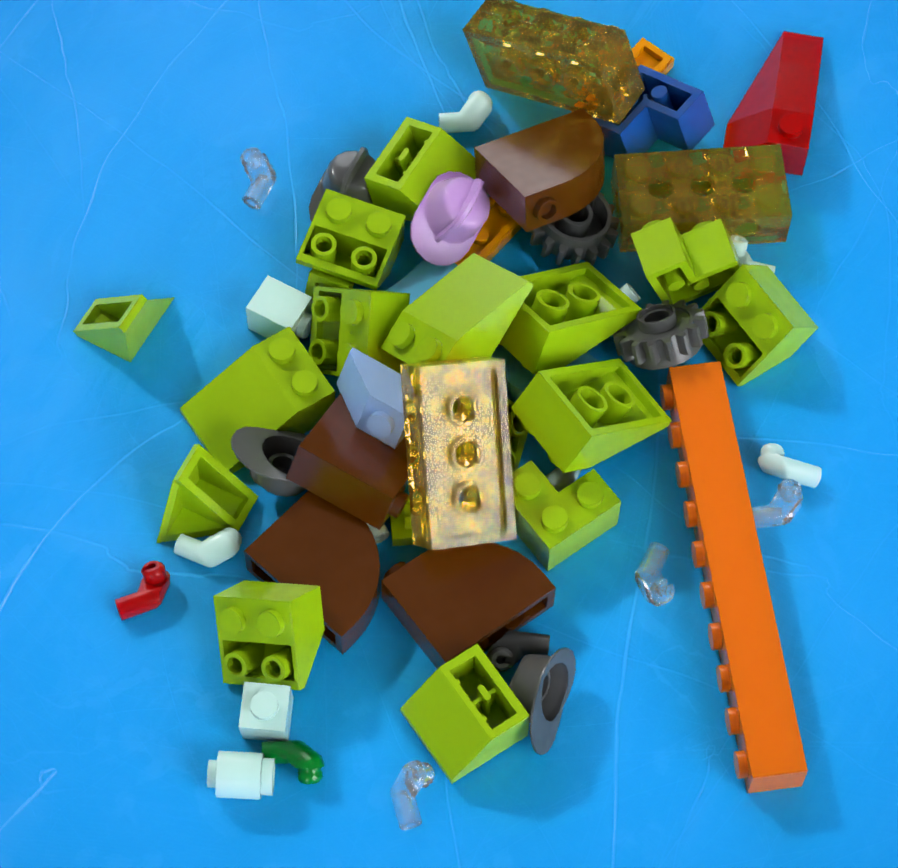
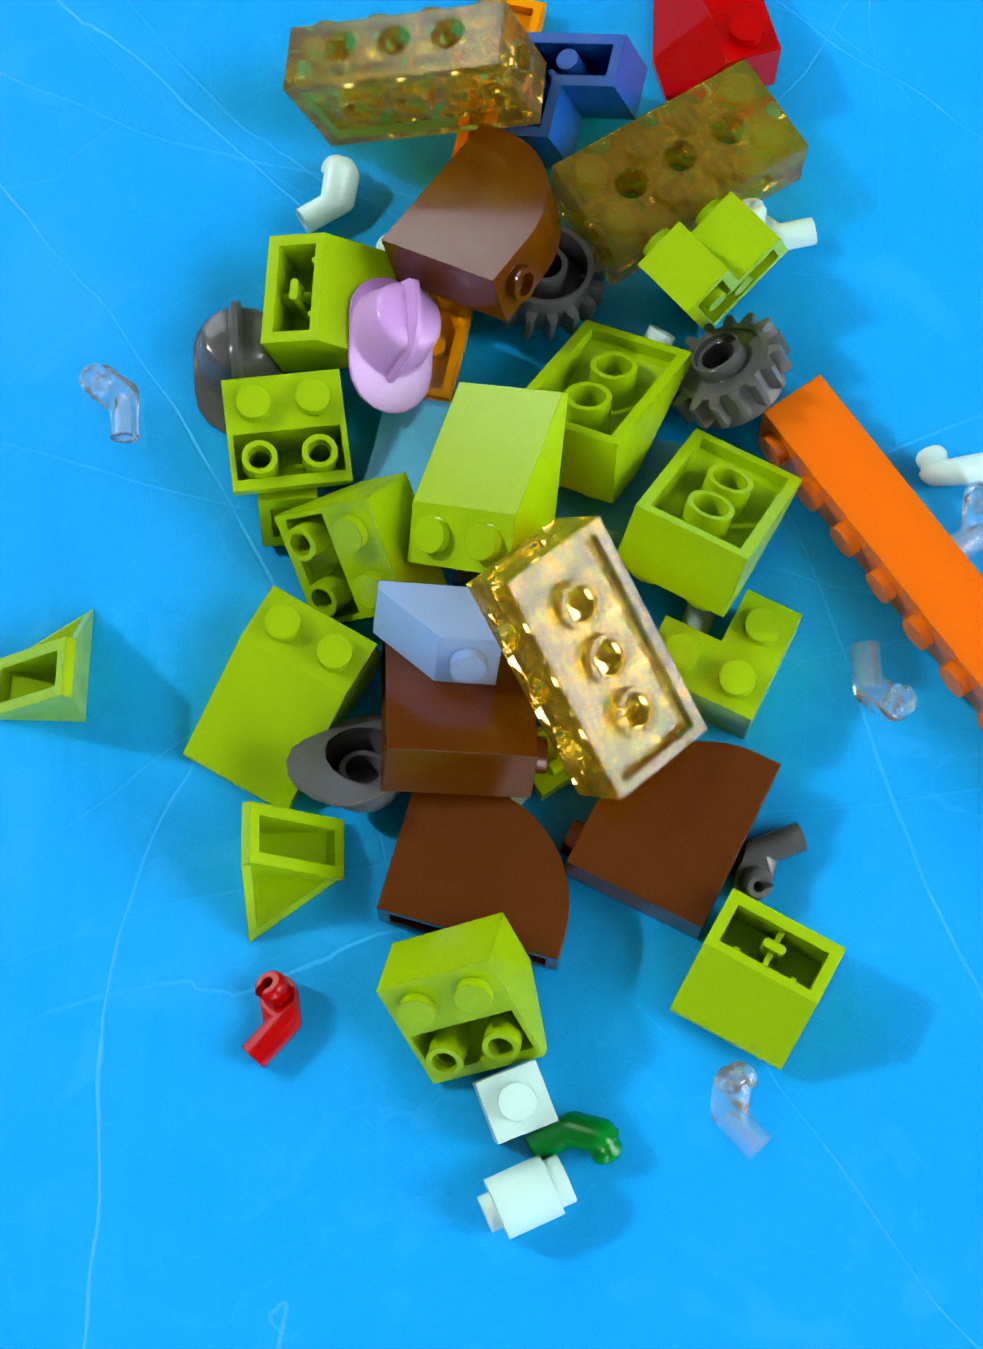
camera: 25 degrees left, 10 degrees up
(210, 551) = (327, 921): light aqua arm -> none
(278, 307) = (243, 566): light aqua brick -> none
(542, 688) = (823, 898): dark grey piece -> none
(754, 323) = (828, 303): lime slope -> none

